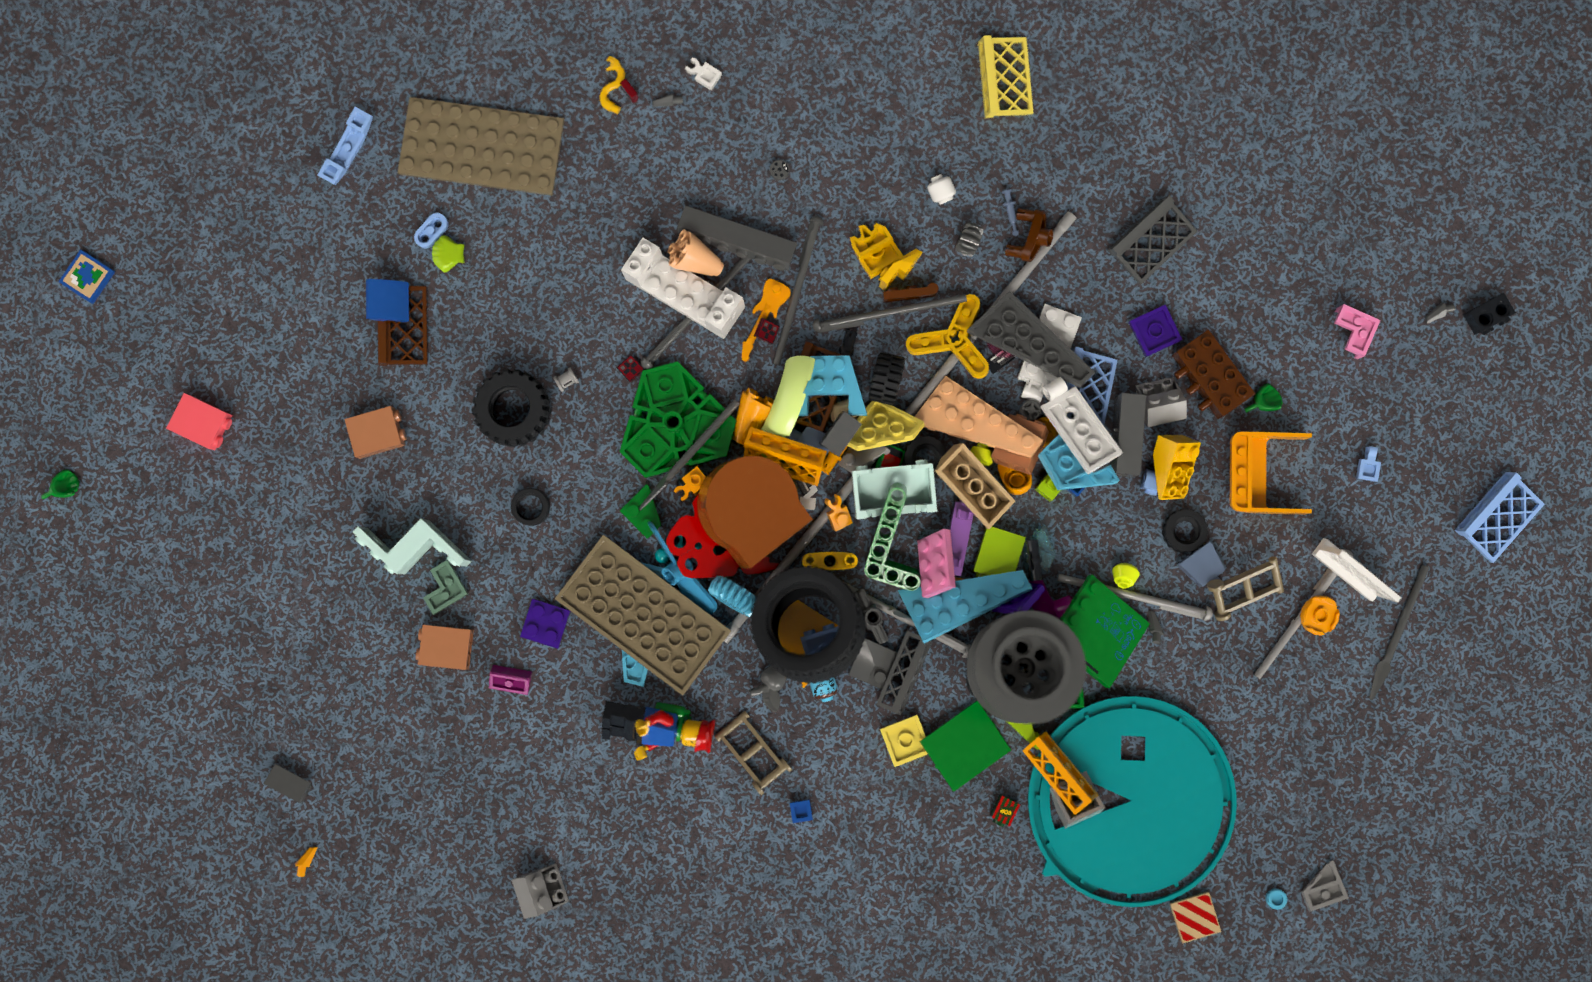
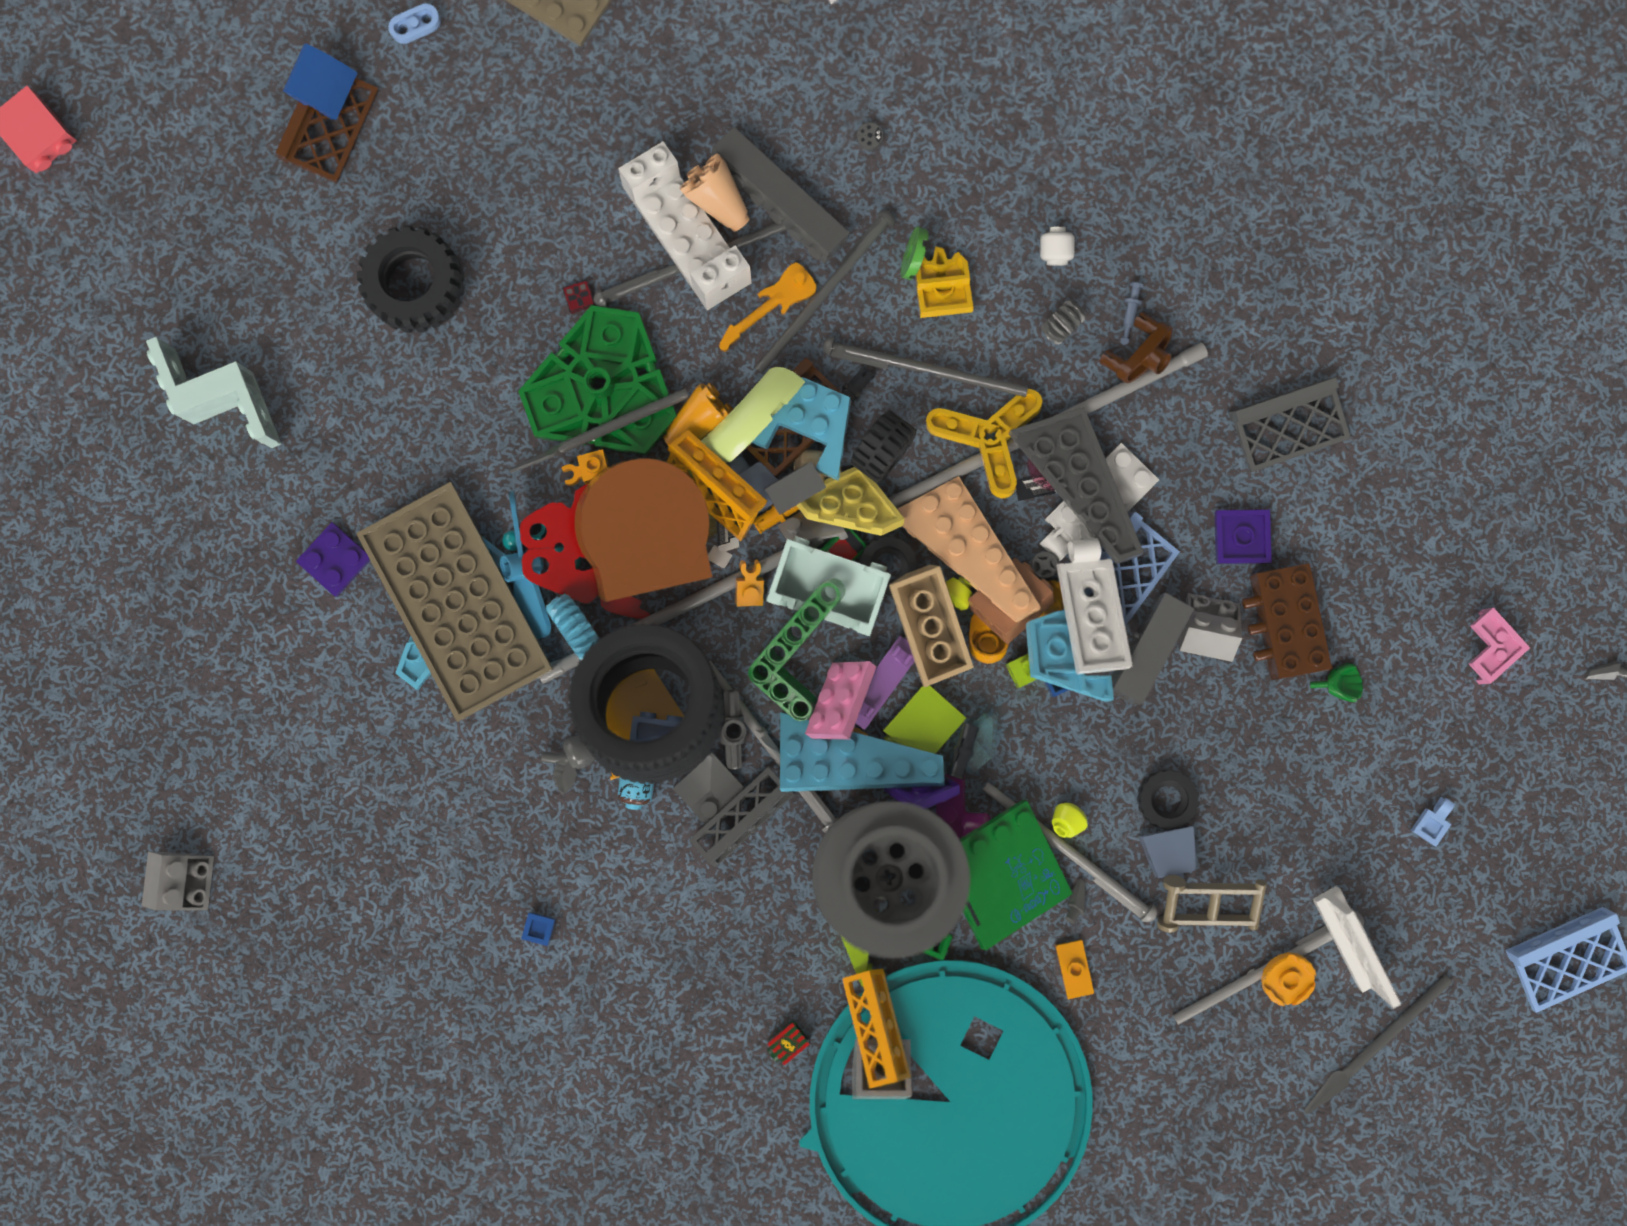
camera: 25 degrees right, 0 degrees up
(375, 432) = (235, 236): nougat brick -> none
(445, 647) = (199, 533): nougat brick -> none
(447, 253) = (421, 59): lime animal -> none
(450, 588) = (237, 467): sand green plate -> none
(510, 679) = (260, 608): magenta slope -> none
(515, 506) = (364, 397): black tyre -> none
(566, 379) = (494, 275): light grey bush -> none
(640, 518) = (519, 480): green wing -> none
(656, 726) = (407, 745): piece -> none
(766, 331) = (764, 324): tile -> none
(782, 764) = (542, 861): dark tan piece -> none
(842, 560) = (697, 630): yellow connector -> none
(847, 237) = (914, 253): none -> bright green tile
(900, 268) = (961, 319): yellow plate -> none
(903, 740) = (705, 901): light yellow plate -> none
(910, 293) = (961, 356): reddish brown plate -> none
(965, 746) = (775, 941): green piece -> none
(989, 72) = (1181, 131): light yellow fence -> none
(1149, 482) = (1155, 721): light blue plate -> none
(1174, 465) = (1191, 711): yellow slope -> none
(1174, 673) = (1074, 969): none -> light orange plate
(1249, 472) = (1281, 762): light orange windscreen -> none

